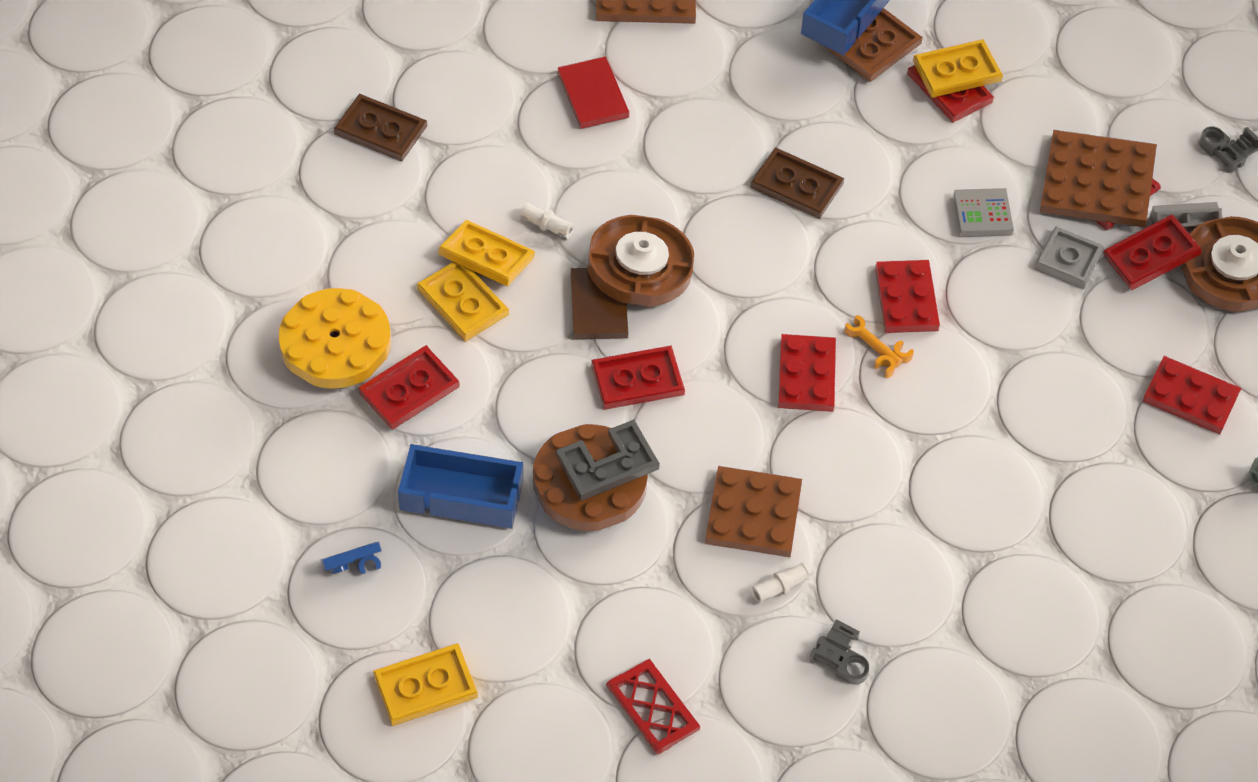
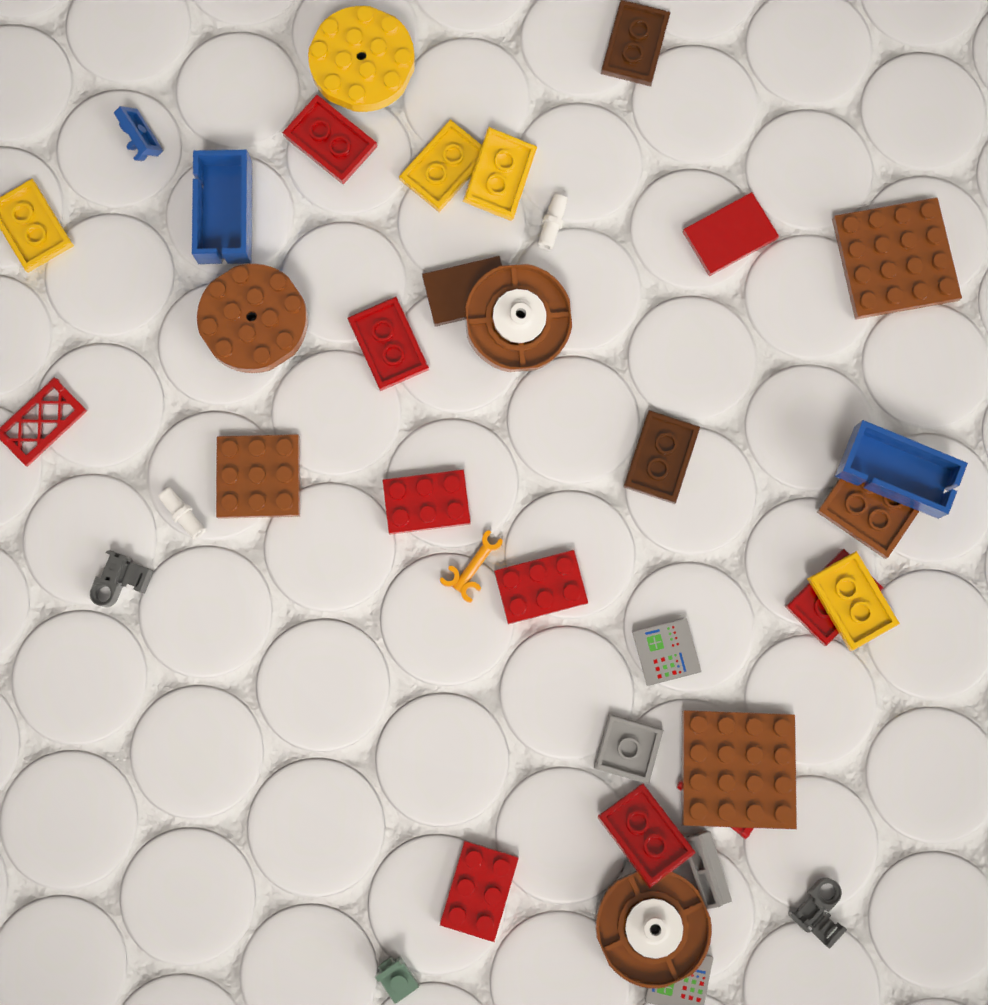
camera: 80 degrees right, 25 degrees up
(631, 462) = (258, 349): dark grey plate -> none

